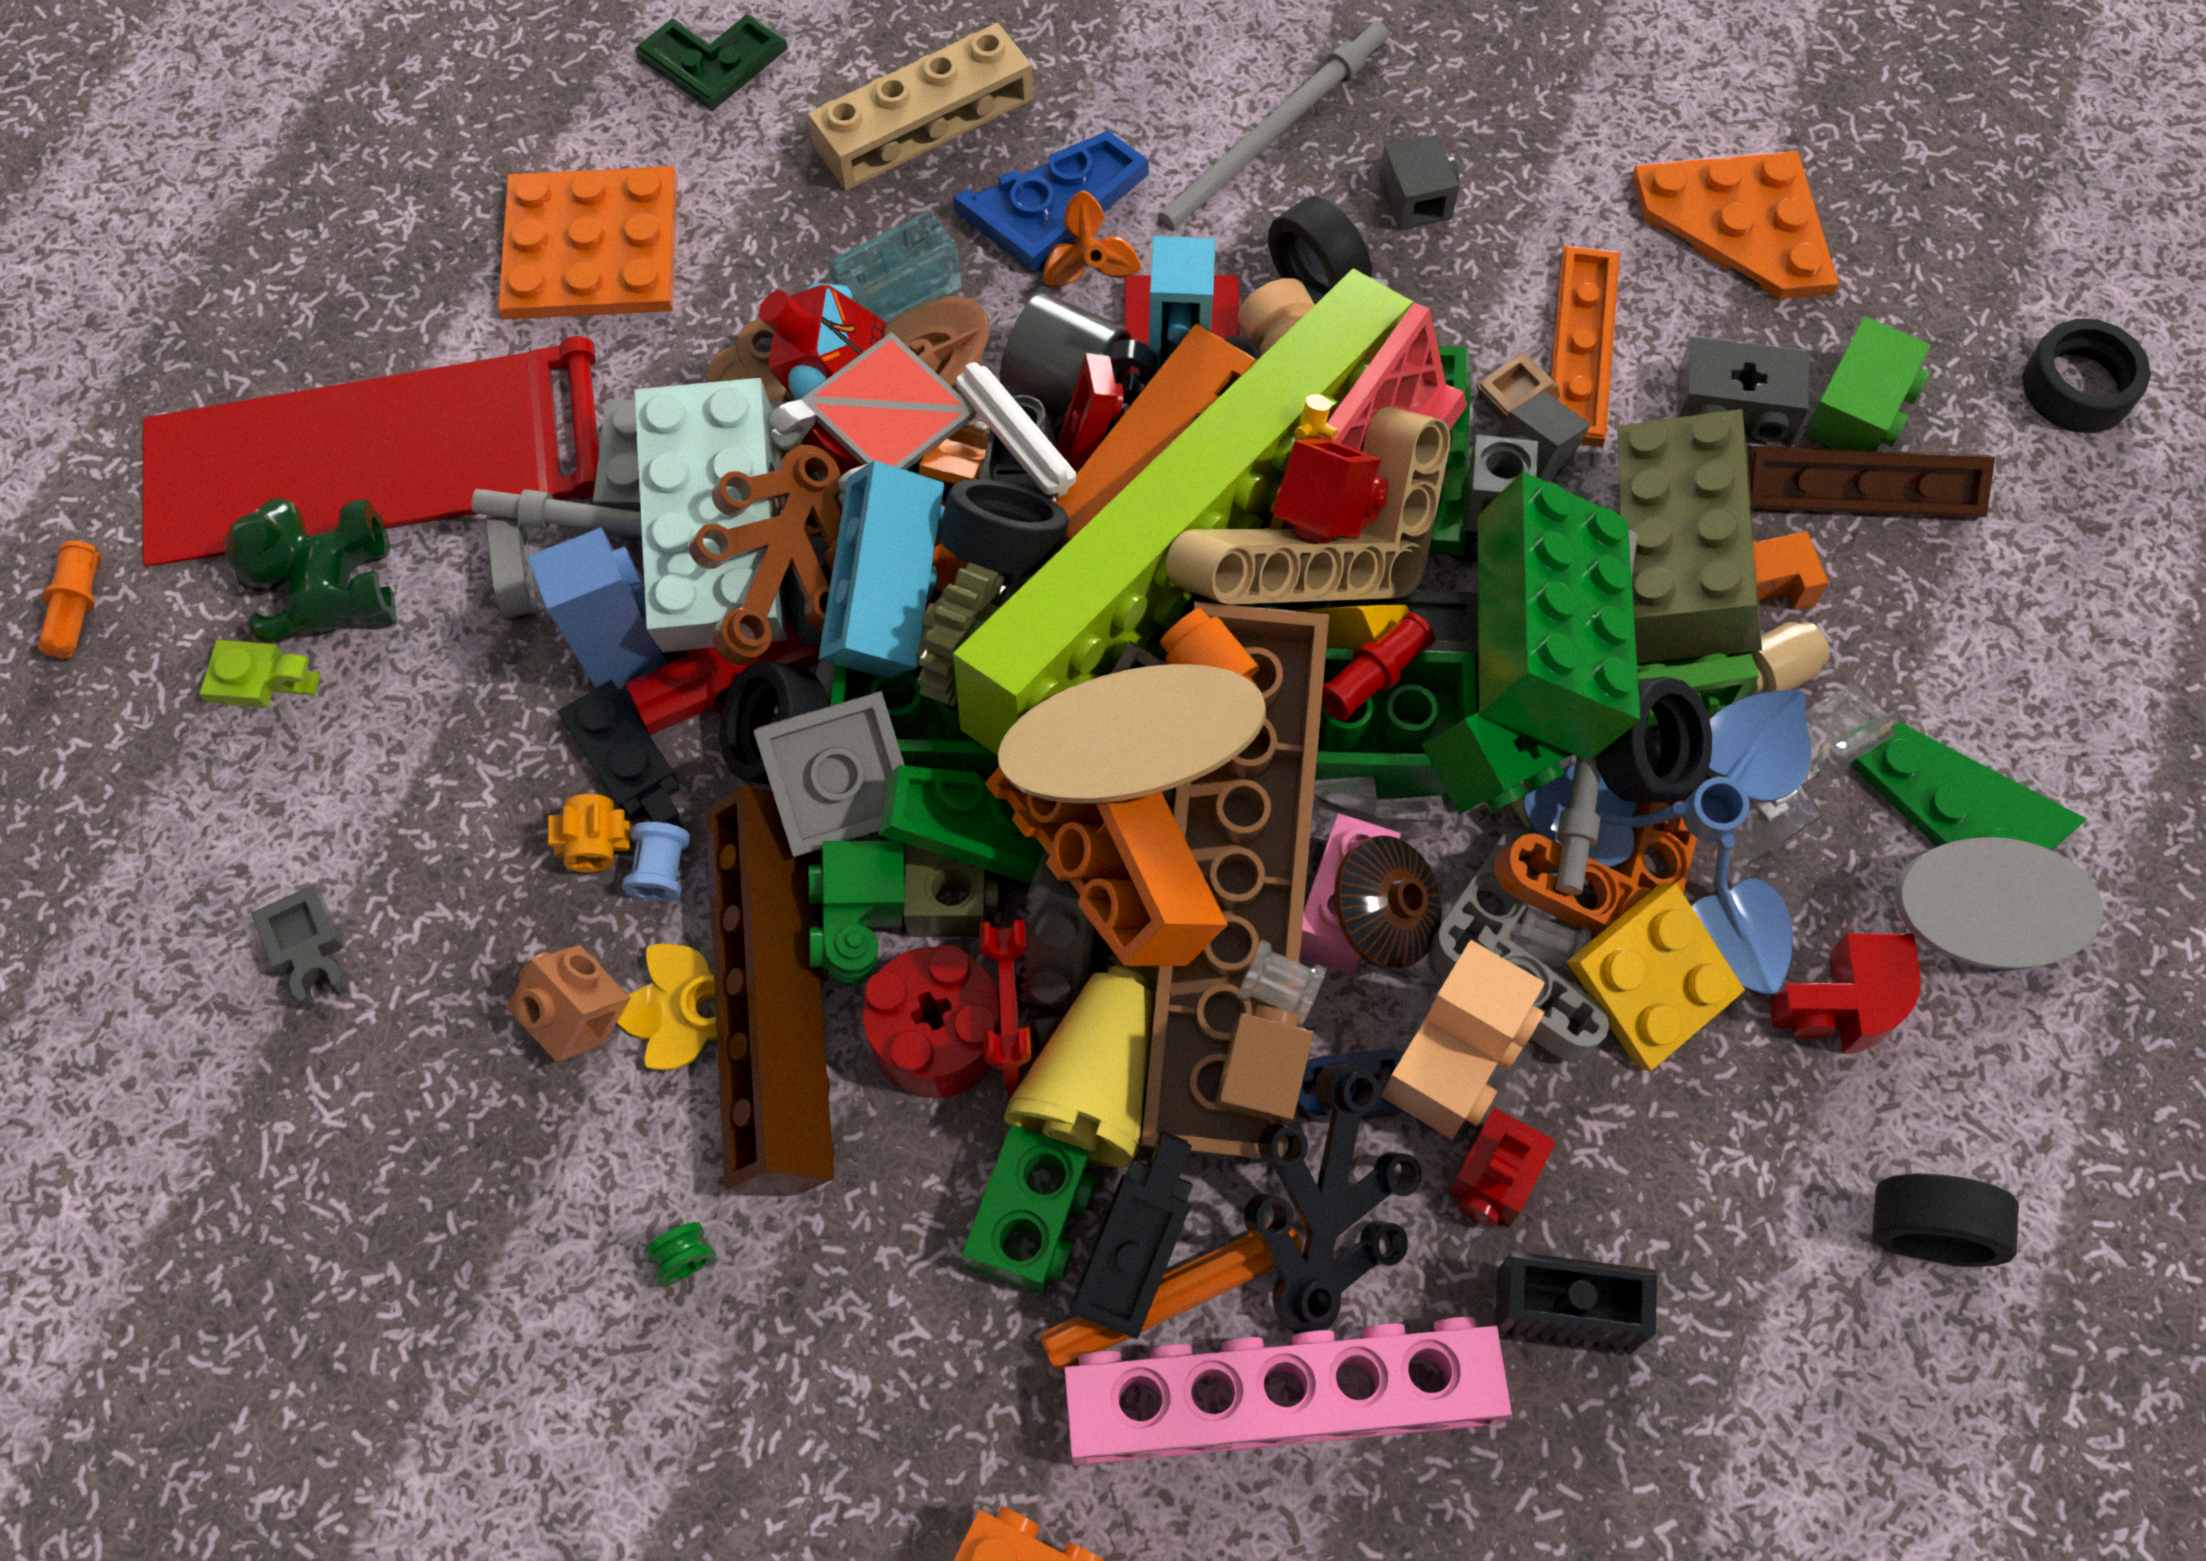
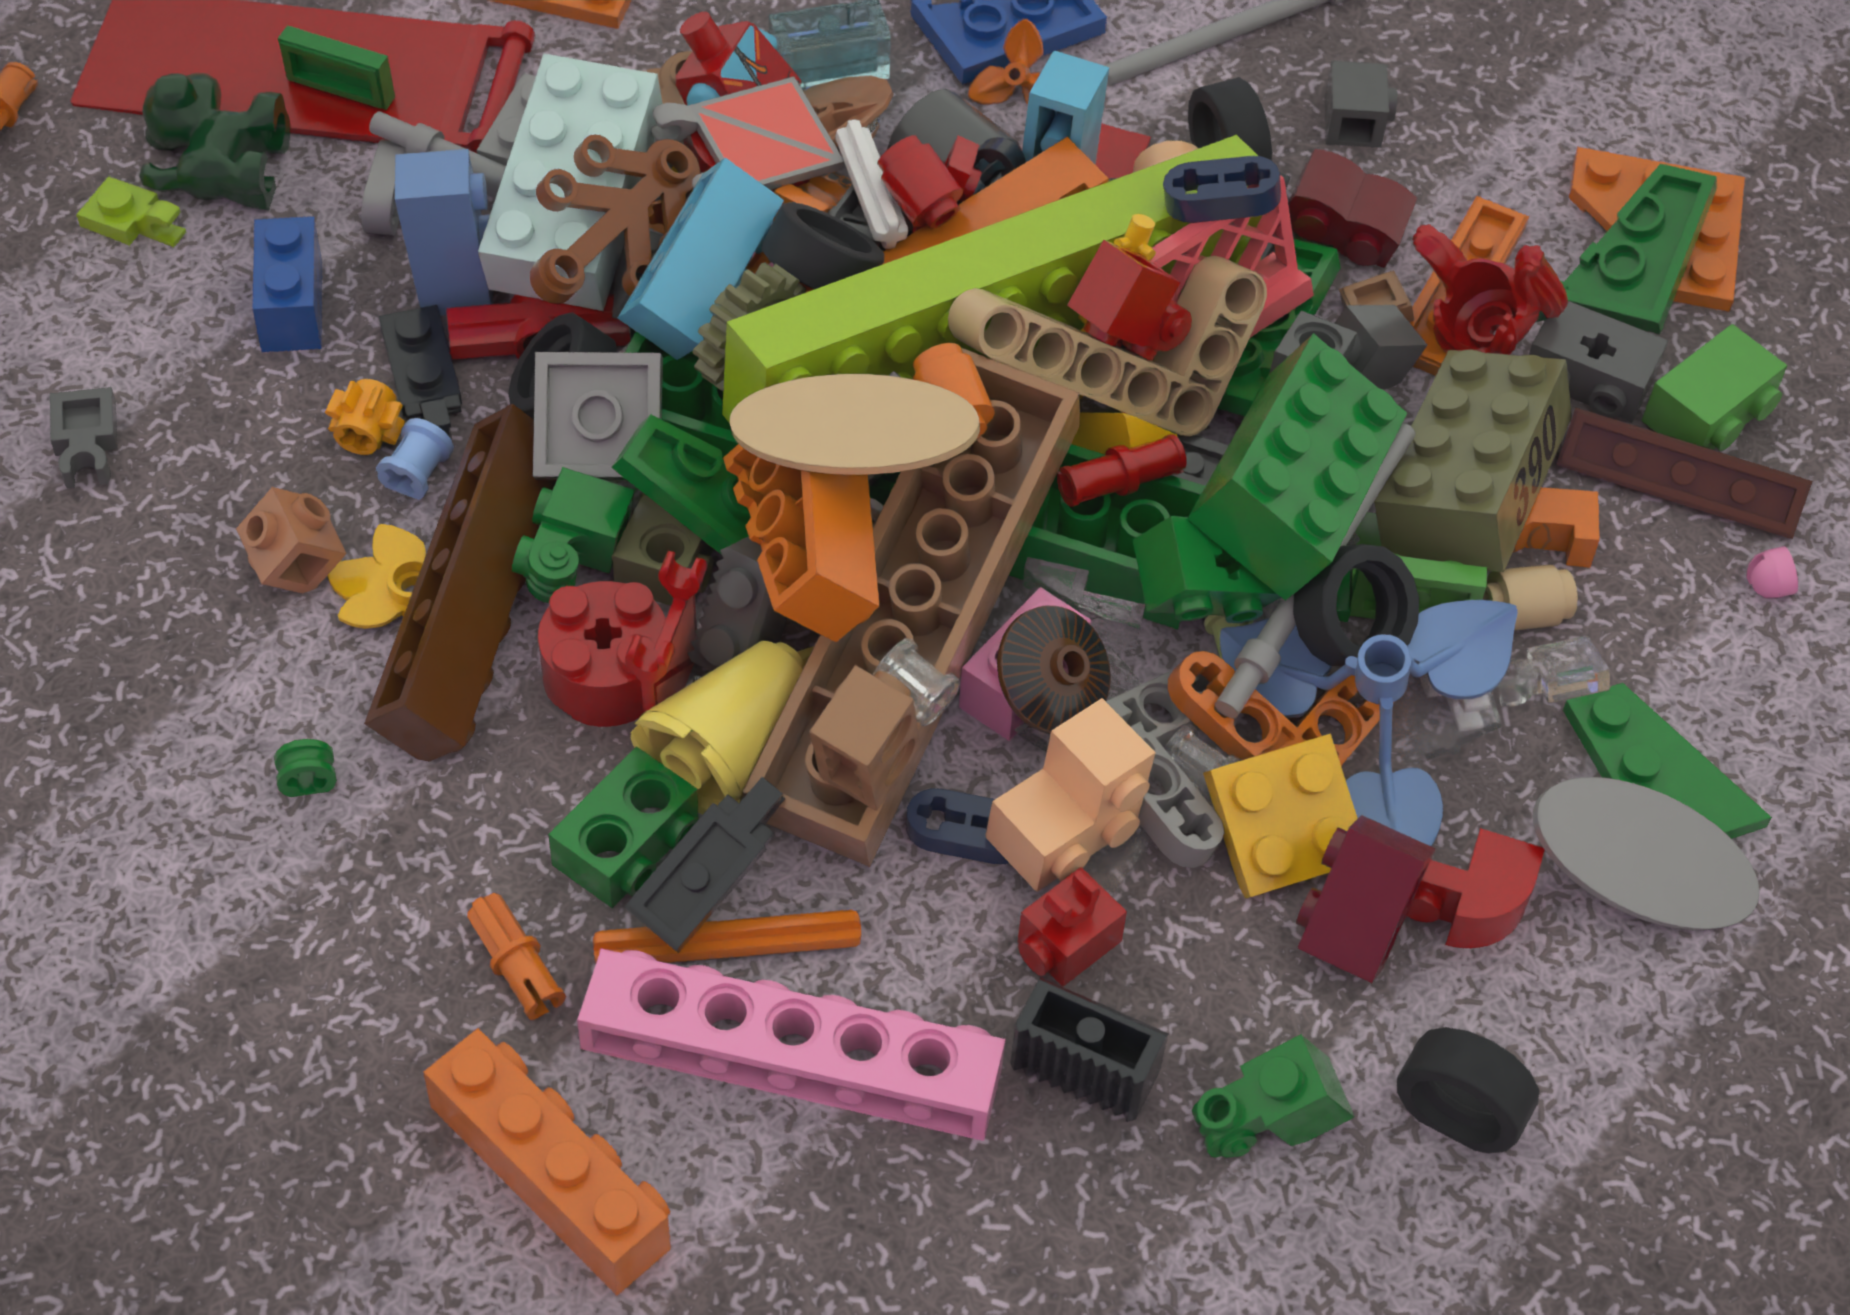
camera: 15 degrees right, 10 degrees down
(409, 447) = (336, 67): none -> green tile
(451, 708) = (287, 284): none -> blue brick
(971, 1390) = (515, 955): none -> orange axle
(1073, 421) = (920, 183): none -> red brick
(1327, 1206) = (891, 902): black plant -> none
(1377, 340) = (1222, 189): none -> dark blue beam
(1467, 297) = (1350, 209): none -> dark red brick
(1631, 356) = (1488, 295): none -> red hair
(1747, 263) = (1646, 251): none -> green wing
(1771, 1289) = (1282, 1091): none -> green brick
(1773, 1047) = (1364, 897): none -> dark red brick
(1987, 558) = (1773, 573): none -> bright pink hinge

